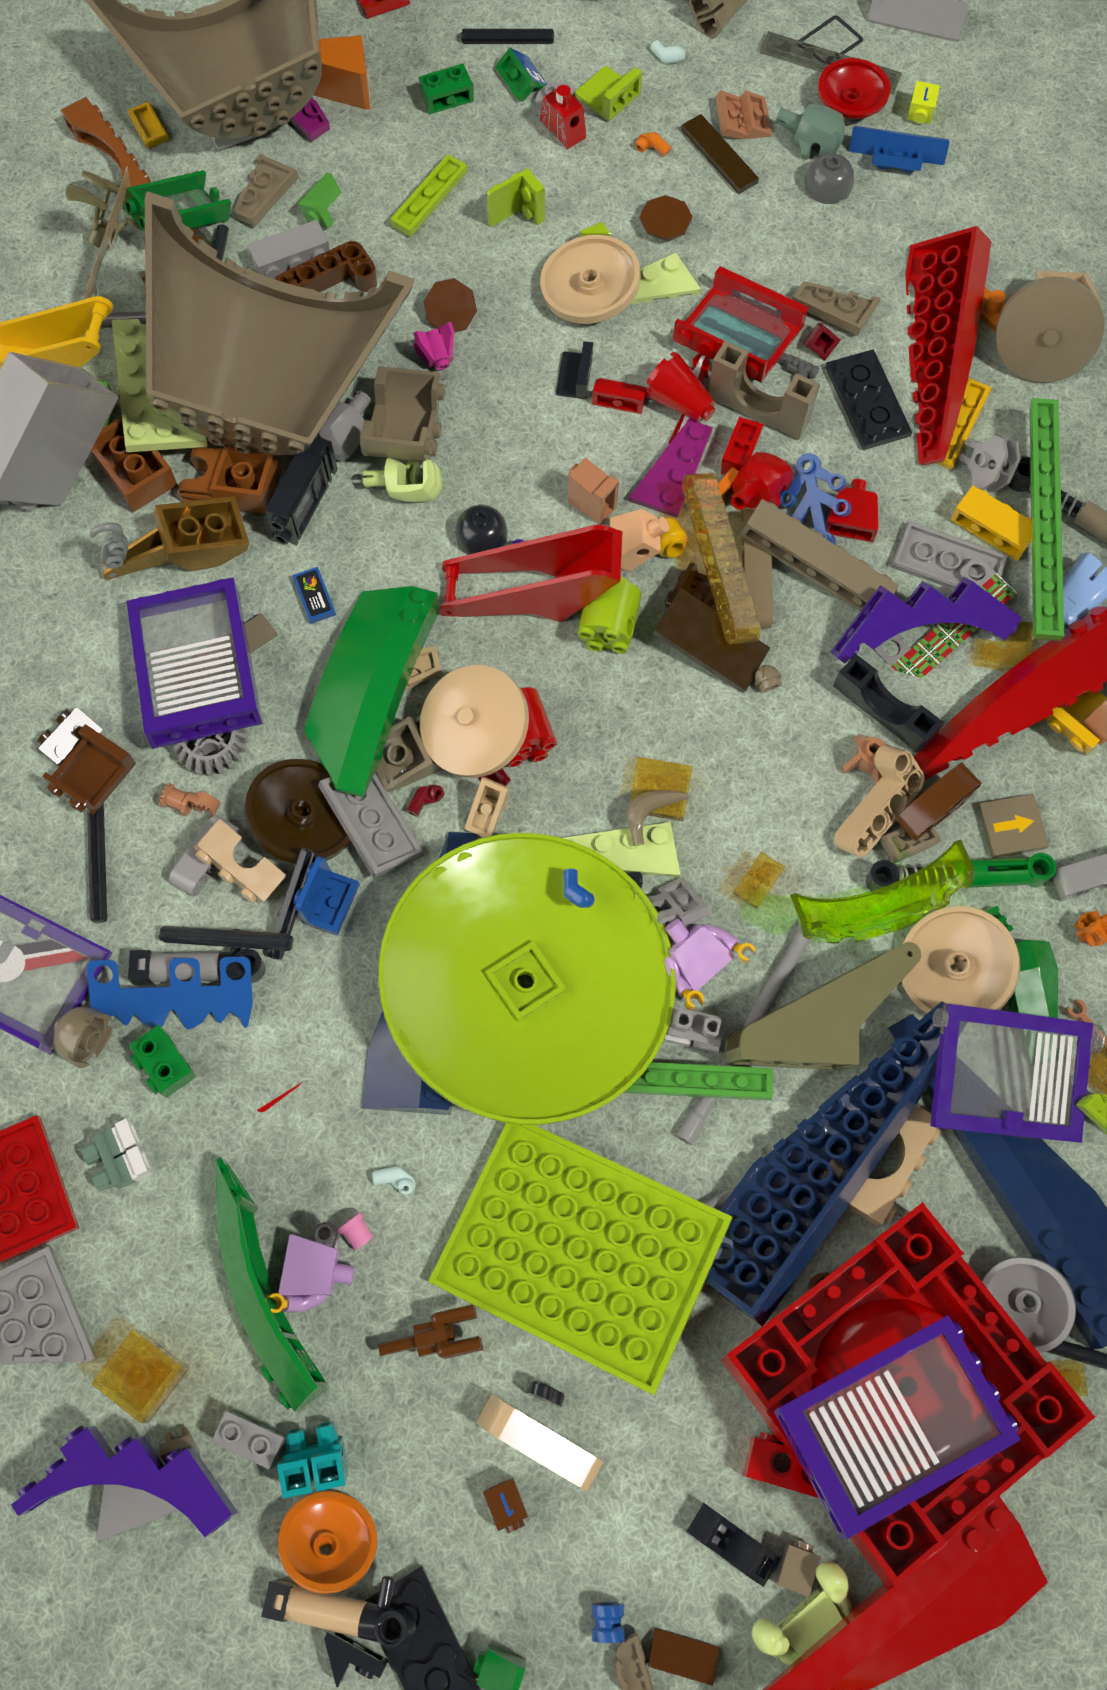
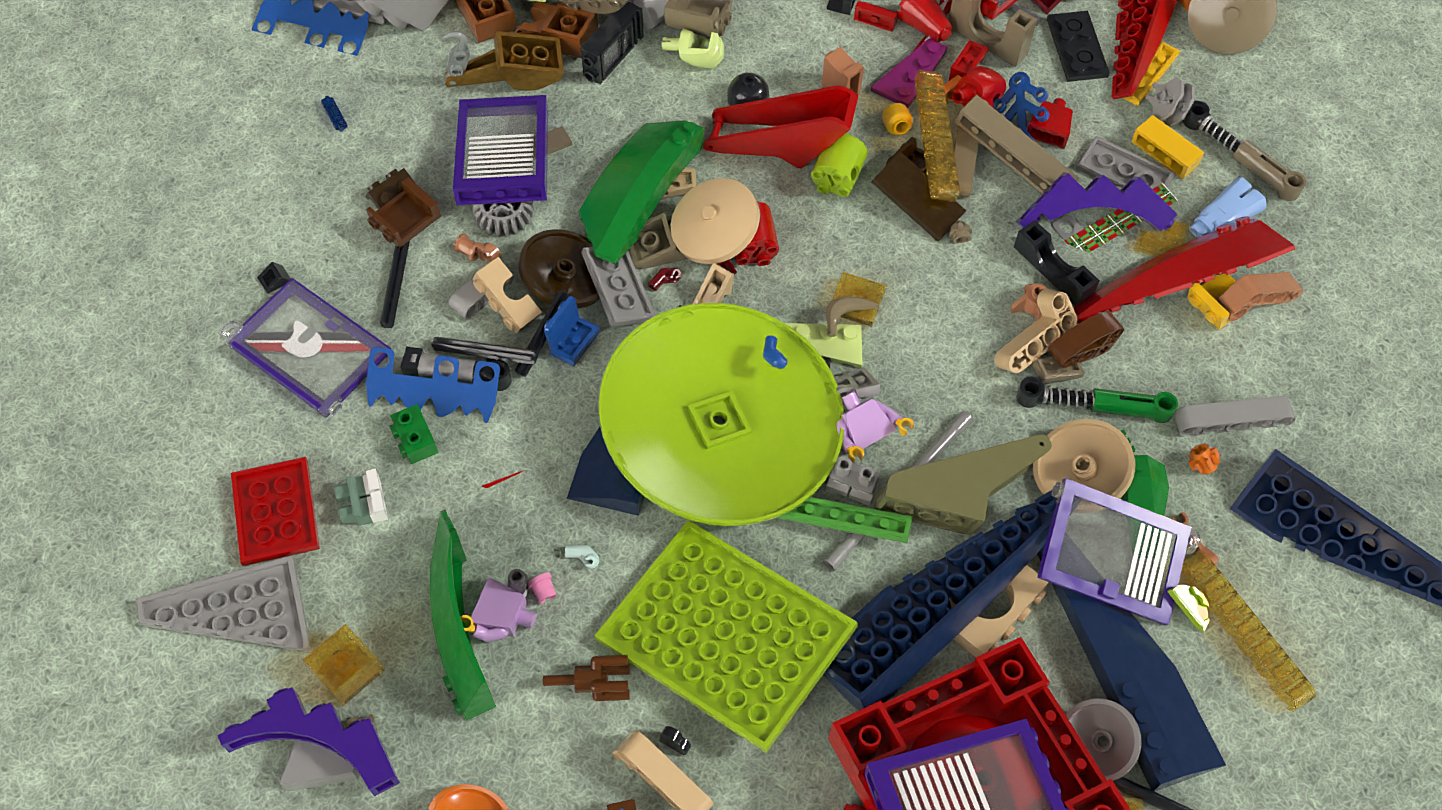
camera: 10 degrees right, 10 degrees down
(81, 1034) = (355, 402): dark tan cylinder -> none
(249, 1439) = (422, 730): light grey brick -> none
(312, 1464) = (470, 760): teal hips -> none
(314, 595) = (606, 120): tile -> none
(639, 537) = (872, 114): light nougat torso -> none
(759, 880) = (926, 377): clear yellow hips -> none
(888, 907) = (1032, 414): clear neon green windscreen -> none
(1013, 826) = (1147, 372): dark tan tile -> none
(1046, 520) = (1208, 147): bright green plate -> none

